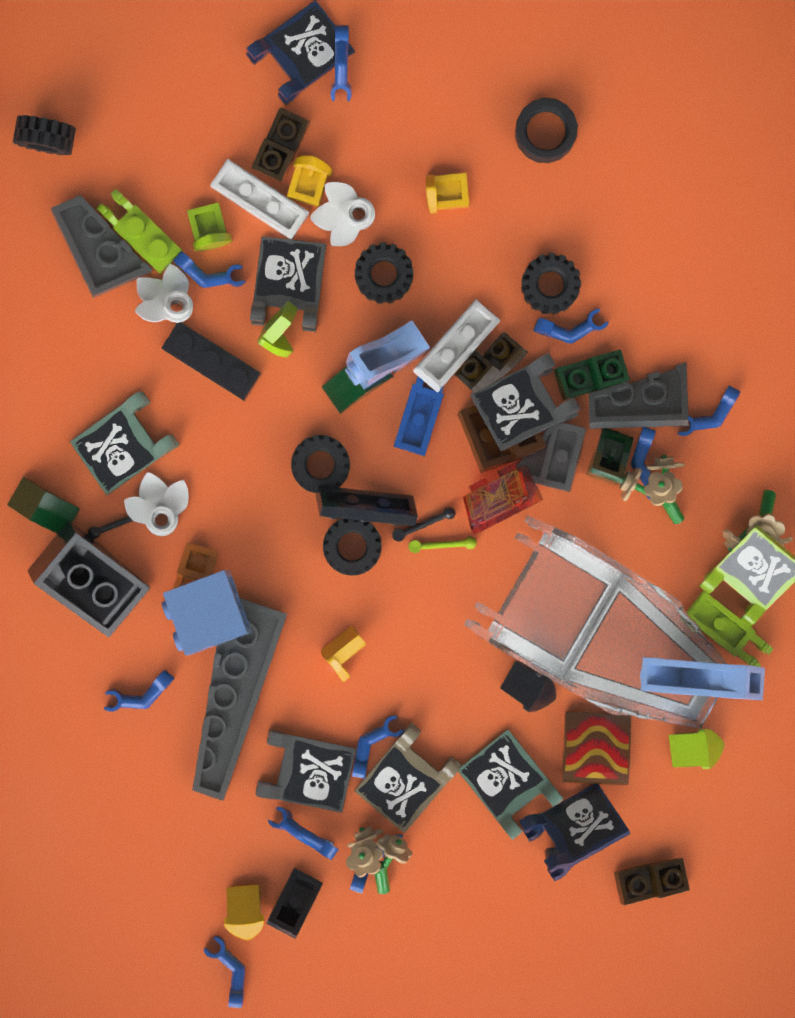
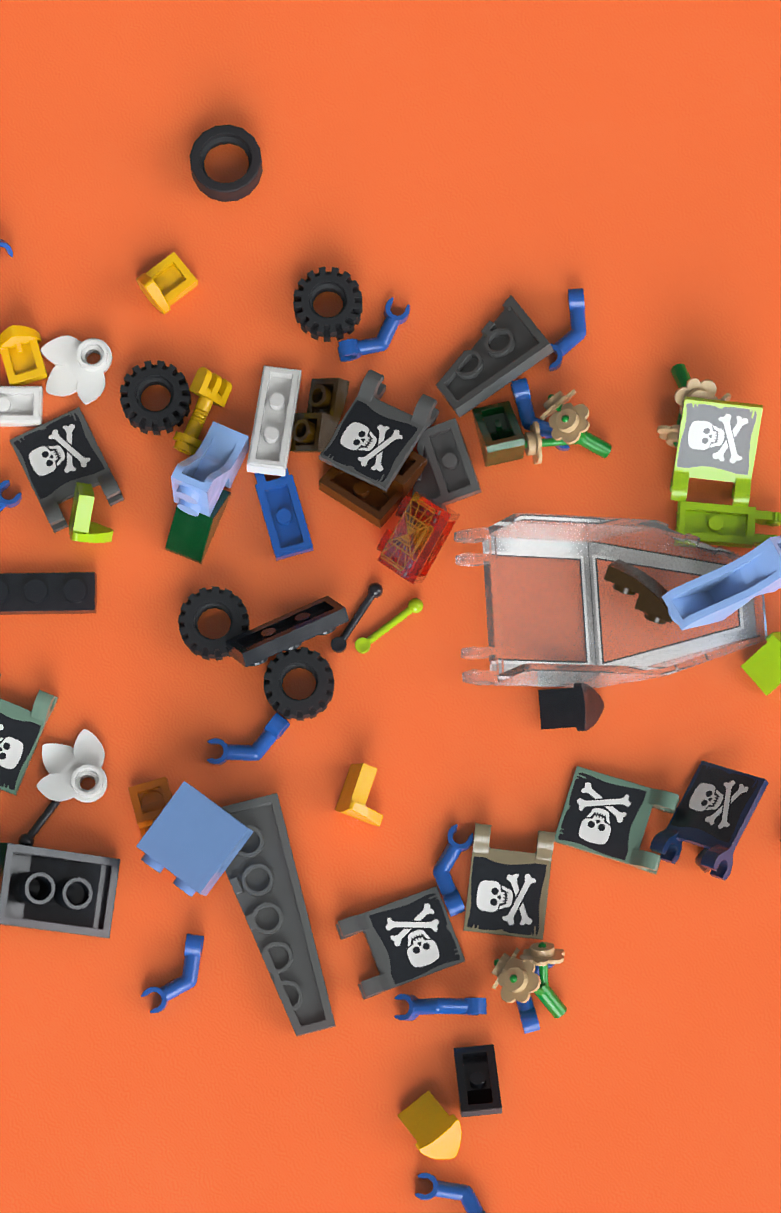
camera: 35 degrees left, 10 degrees down
(292, 573) = (254, 752): none -> blue arm
(426, 293) = (211, 390): none -> yellow hinge
(591, 374) = (426, 365): dark green slope -> none
(596, 748) = (678, 726): slope -> none
(632, 626) = (632, 580): none -> dark brown slope

